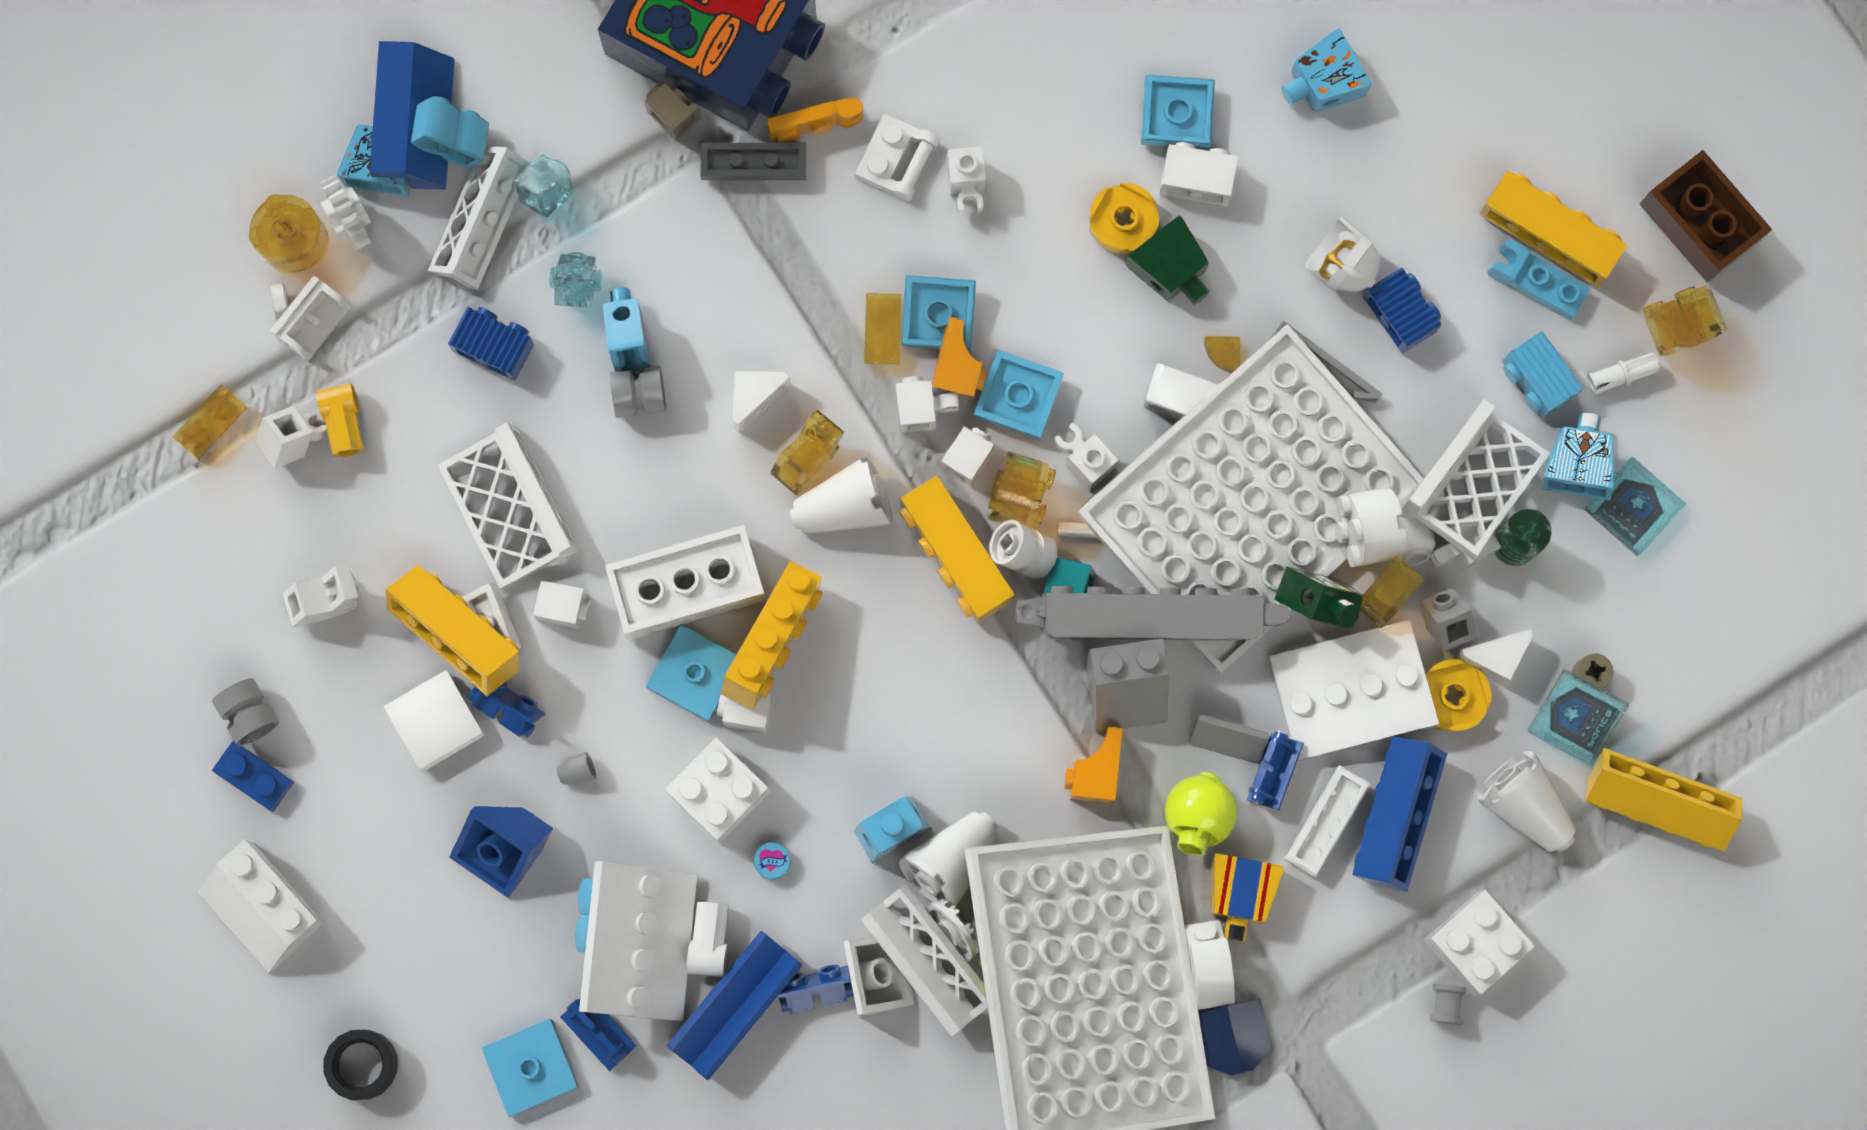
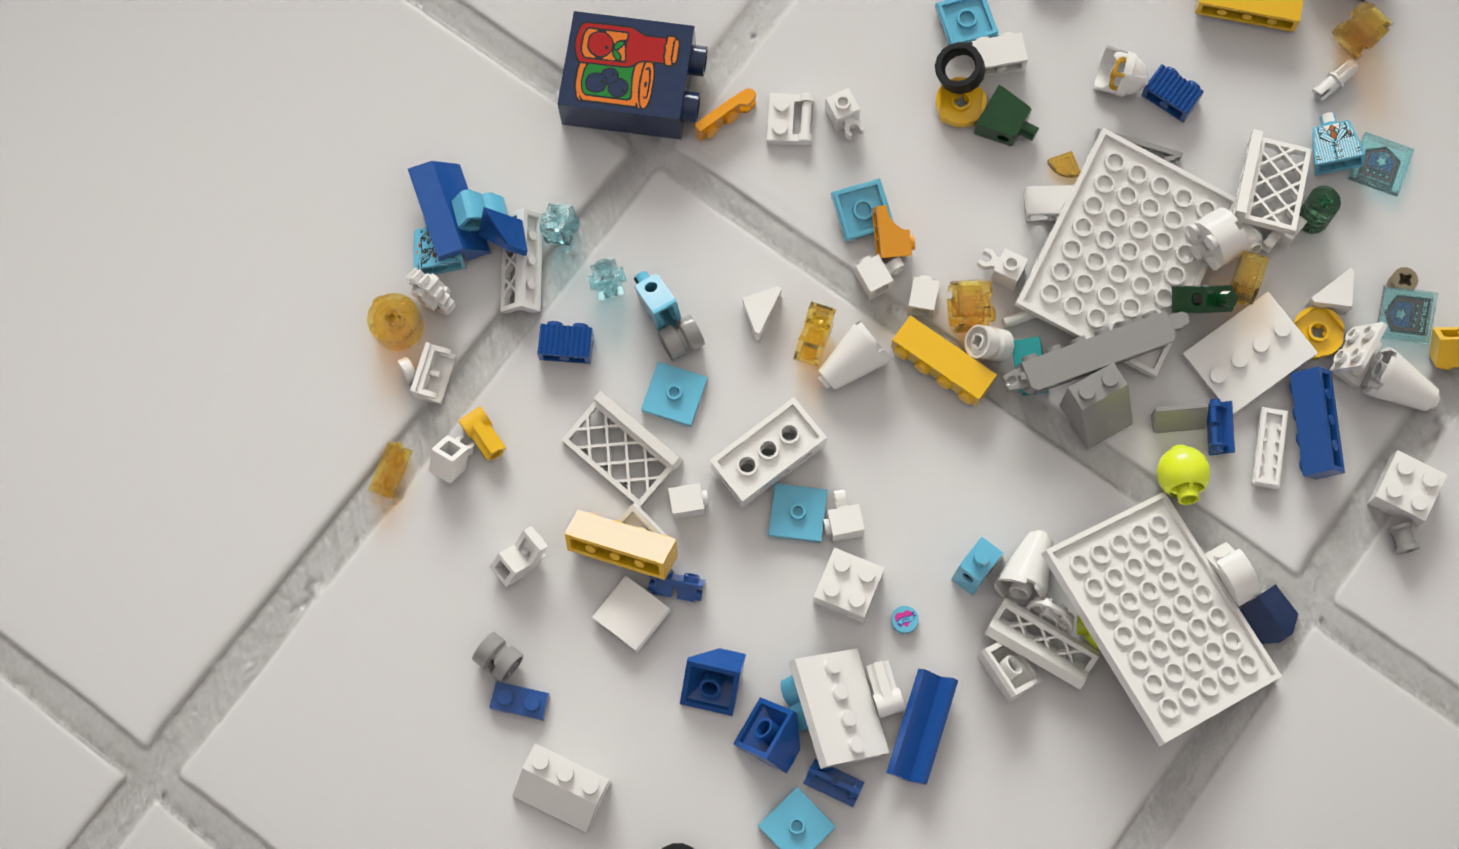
camera: 15 degrees left, 5 degrees down
(467, 171) = (503, 231): none -> blue slope
(542, 942) = (771, 735): none -> blue slope
(577, 770) = (744, 609): light grey hose -> none
(602, 460) = (674, 394): none -> medium azure plate
(671, 110) = (624, 143): dark tan brick -> none
(753, 161) = (694, 156): dark grey plate -> none
(771, 636) = (843, 465): yellow brick -> none
(830, 982) = (980, 687): blue hinge -> none
(882, 328) = (828, 234): clear yellow slope -> none
(1018, 395) = (940, 244): medium azure plate -> none
(1097, 776) = (1103, 477): light orange arch -> none
(1121, 154) = (952, 51): none -> black tyre
(1242, 892) = (1233, 516): torso -> none
(1448, 619) = (1292, 282): light grey brick -> none
(1492, 744) = (1358, 353): none -> white bracket
(1539, 280) = (1252, 40): medium azure plate -> none
(1541, 375) = (1283, 101): medium azure brick -> none

